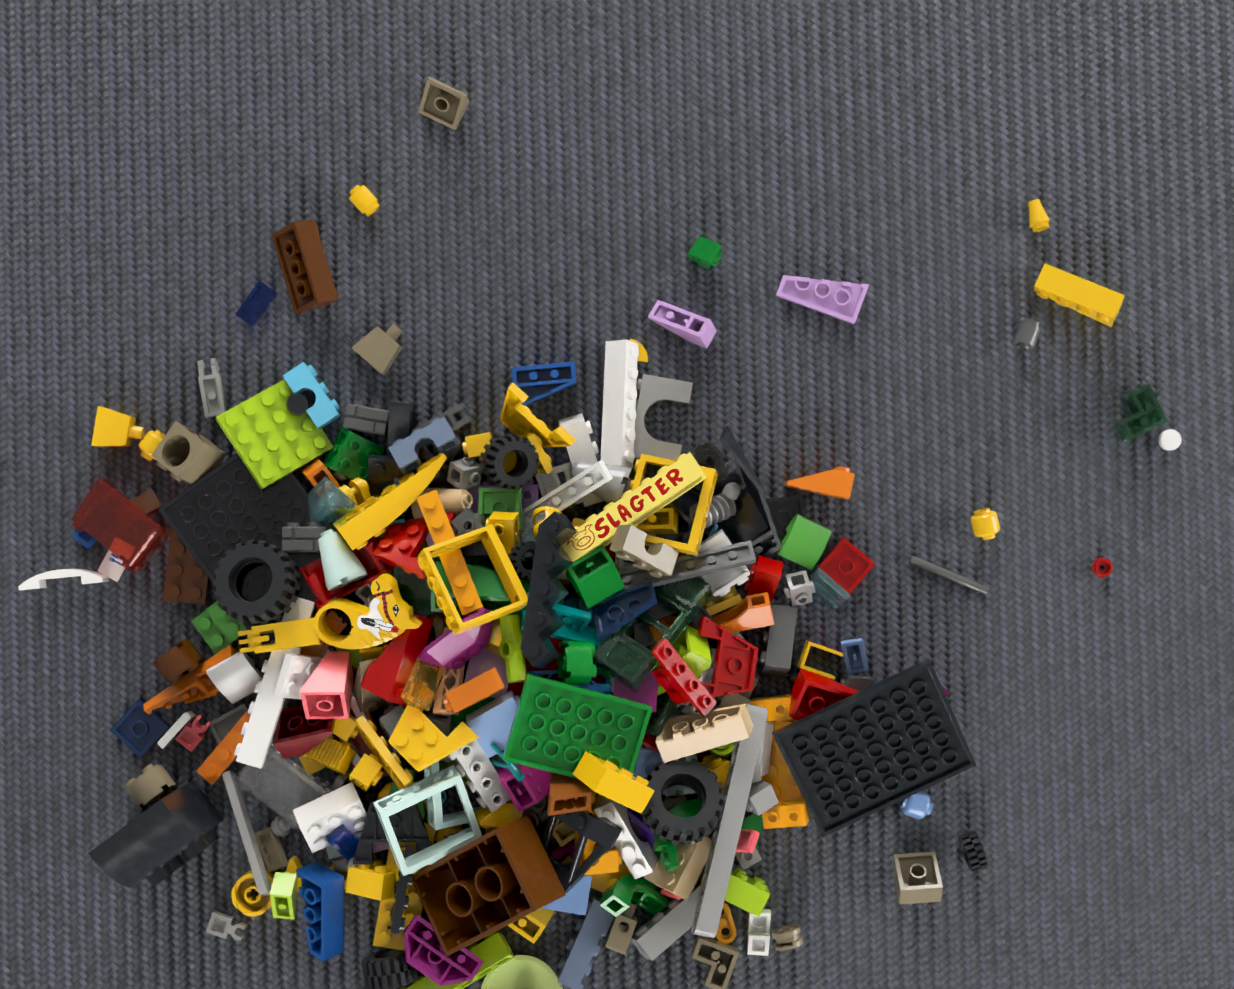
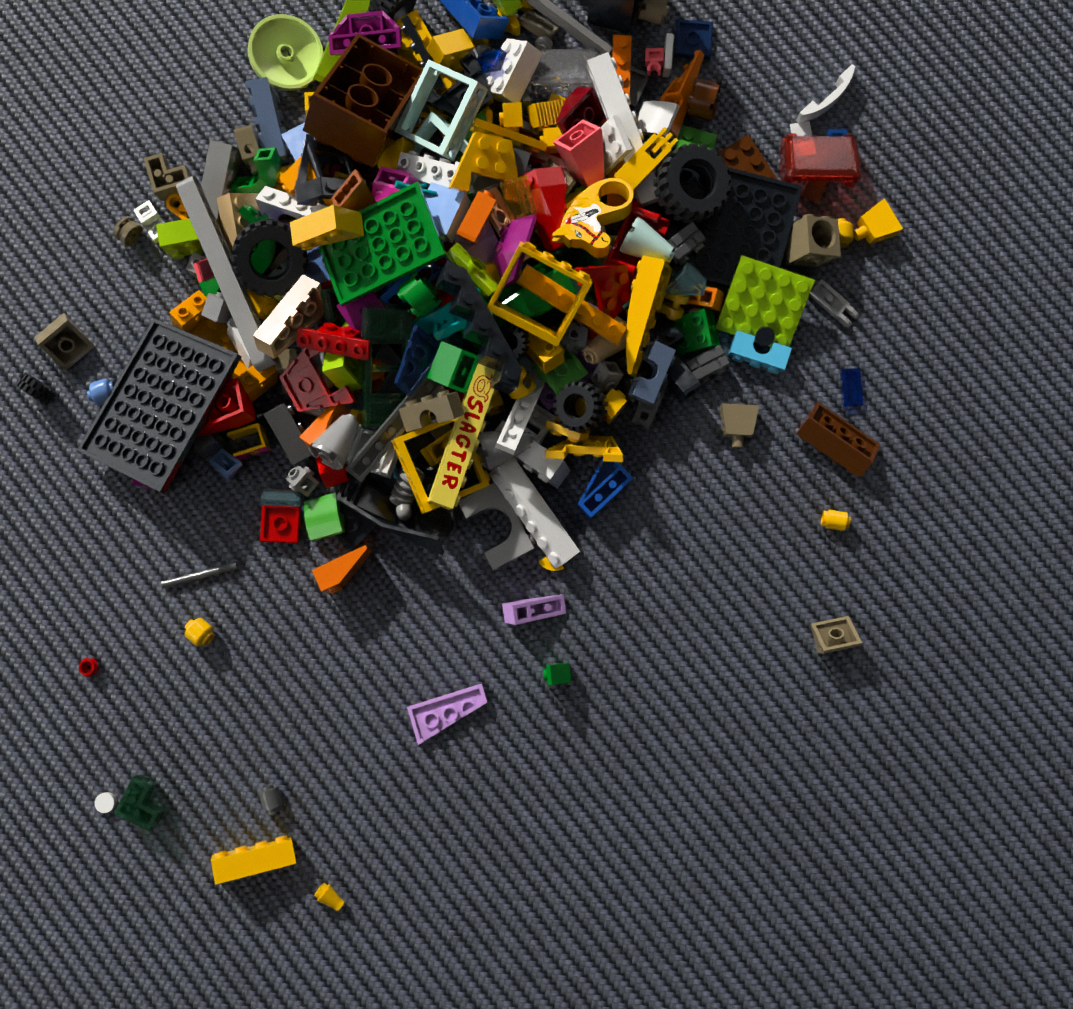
camera: 145 degrees right, 5 degrees down
(745, 592) = (335, 442): none -> light grey cone

